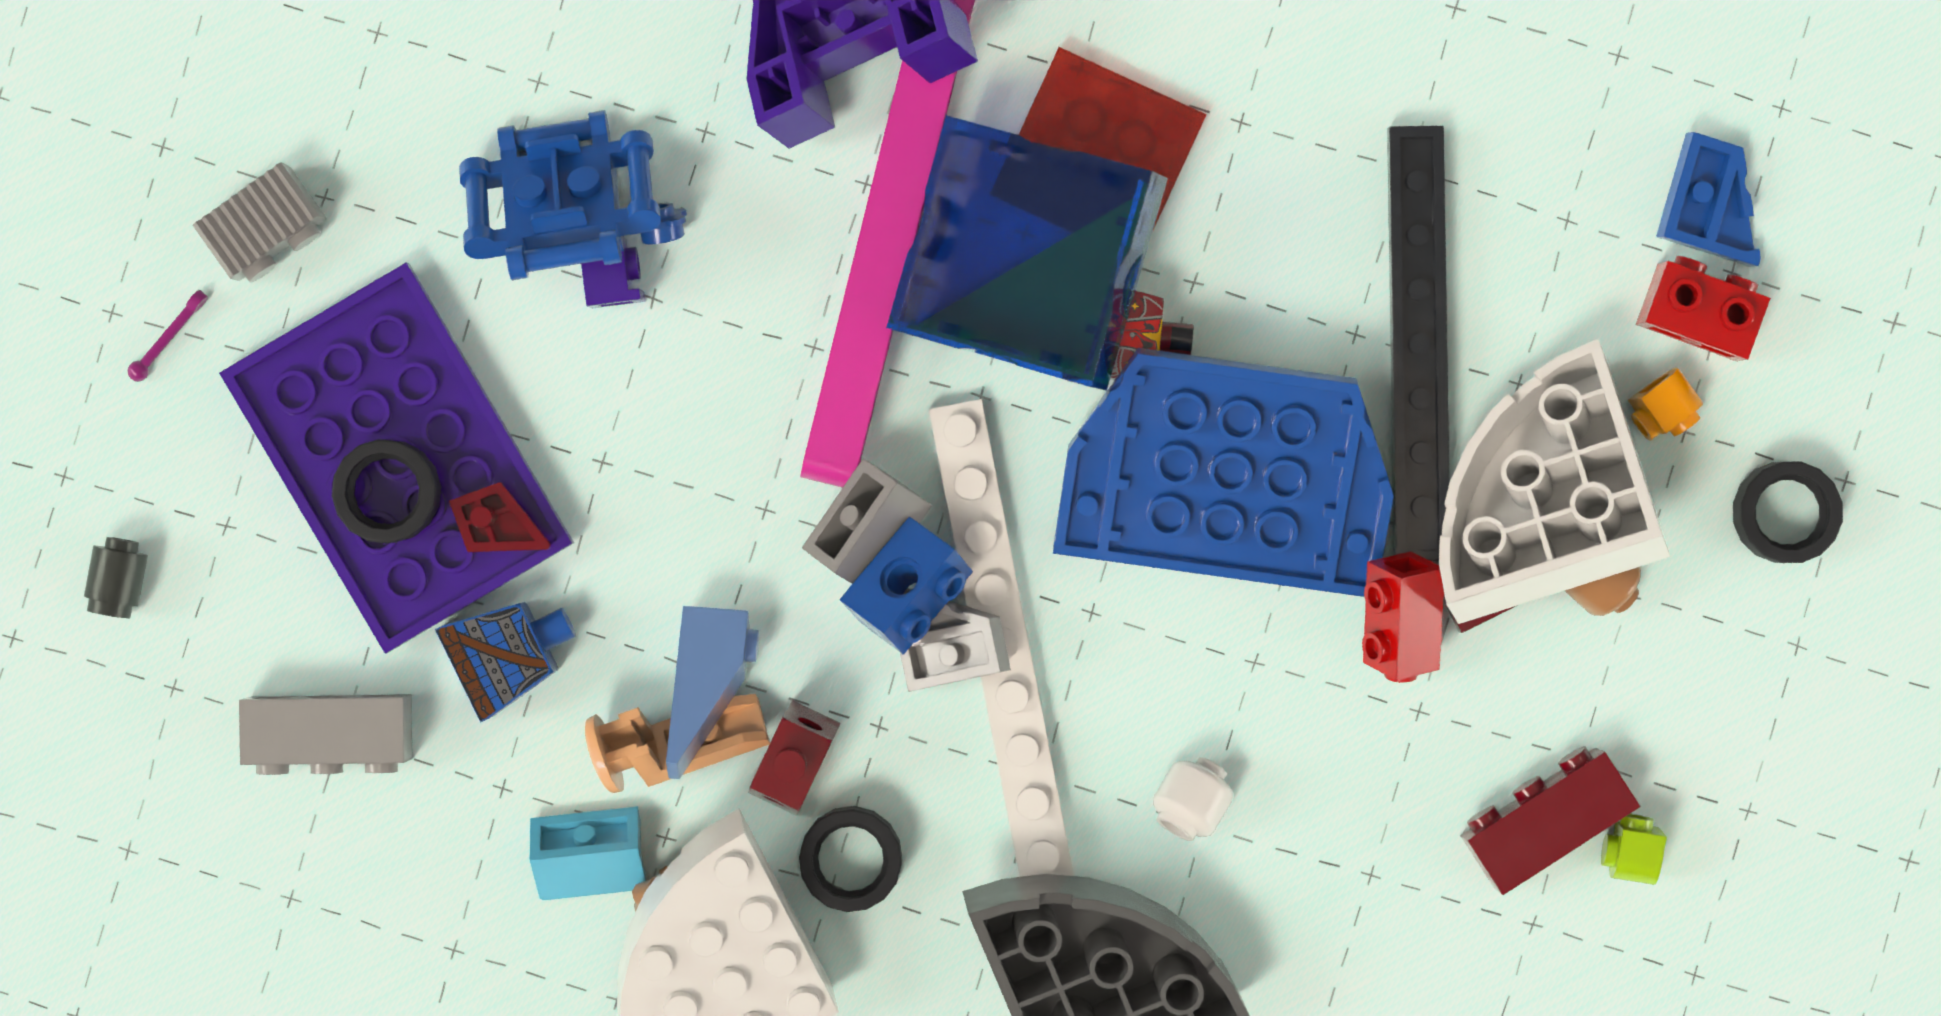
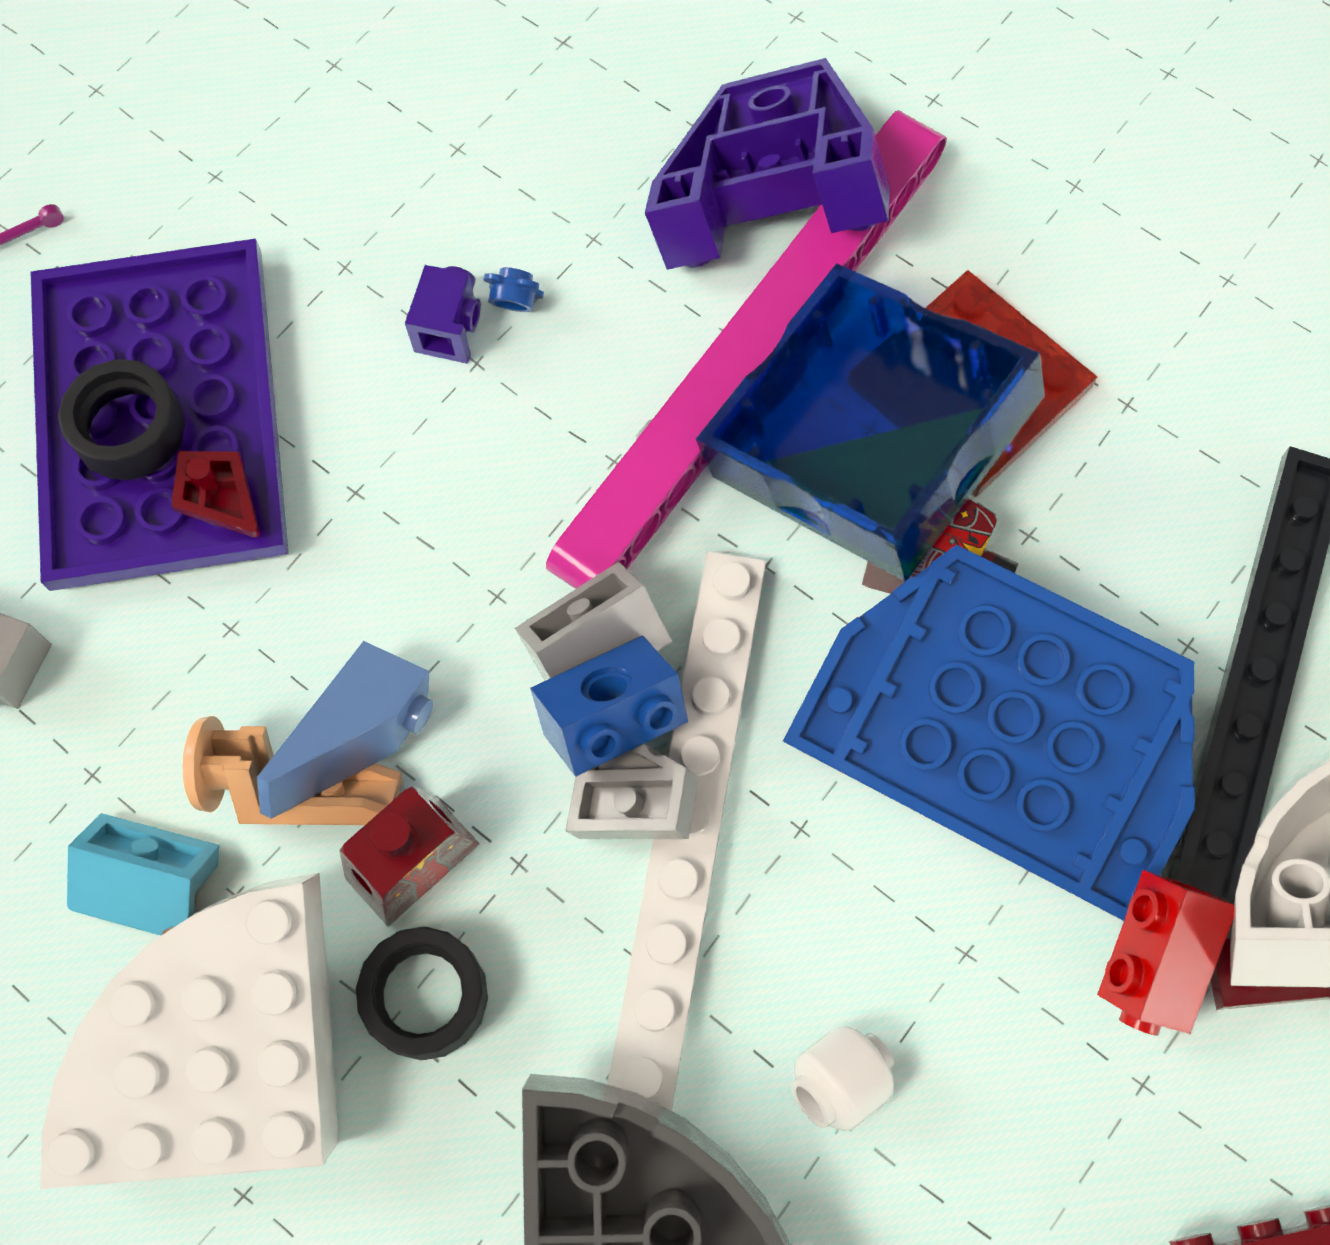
camera: 25 degrees right, 20 degrees down
(261, 223) = (141, 163): light grey brick -> none
(503, 654) = (157, 630): torso -> none
(559, 196) = (423, 220): blue brick -> none

